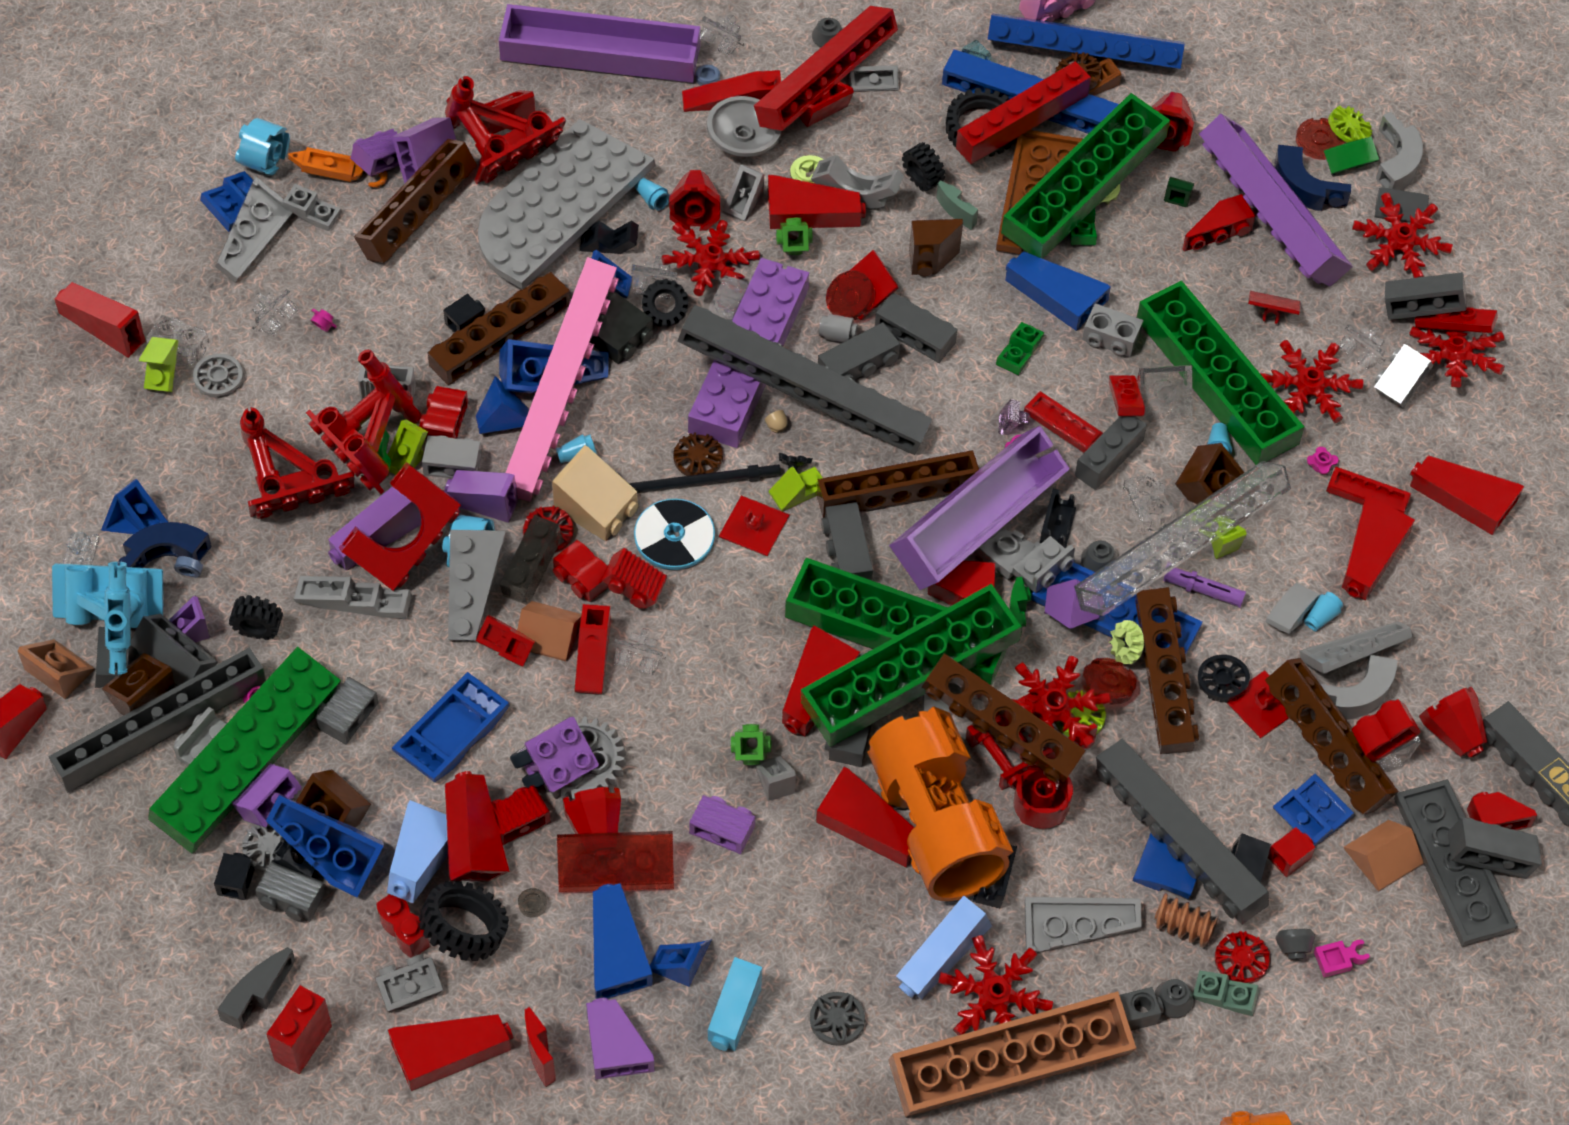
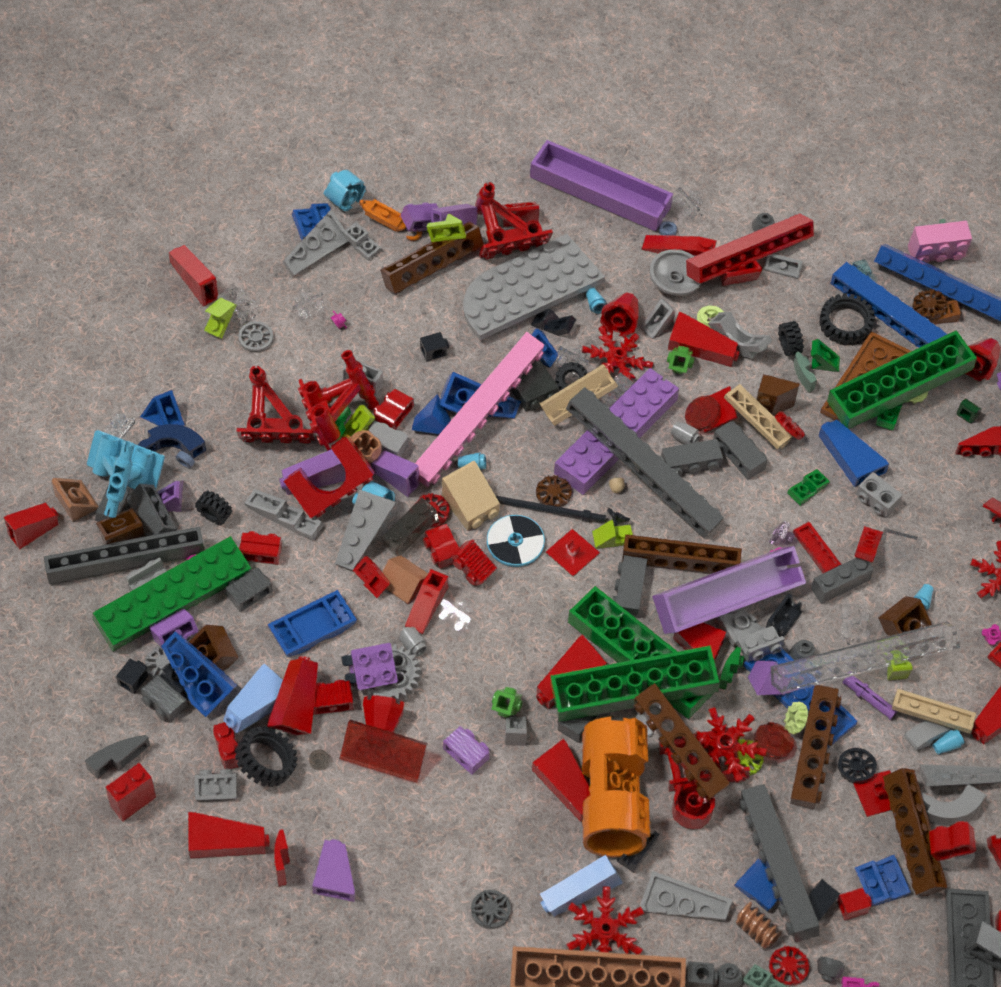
camera: 20 degrees right, 0 degrees up
(341, 649) = (261, 547): none -> red brick
(426, 157) = (449, 229): none -> lime slope
(434, 467) = (367, 444): none -> nougat piece
(504, 322) = (459, 359): reddish brown brick -> none
(594, 705) = (413, 640): none -> light grey brick
(618, 951) = (360, 813): blue slope -> none
(665, 333) = (595, 381): none -> tan fence
(679, 961) = (400, 833): blue slope -> none
(735, 1004) = (423, 875): medium azure slope -> none
(925, 277) = (758, 416): none -> tan fence
(967, 277) = (789, 426): none -> red wheel
(973, 179) = (823, 357): none -> green slope
(1023, 112) = (875, 321): red brick -> none
(1220, 373) = (943, 549): green brick -> none
(1291, 577) = (933, 711): none -> tan fence
(1386, 853) = (922, 928): nougat slope -> none

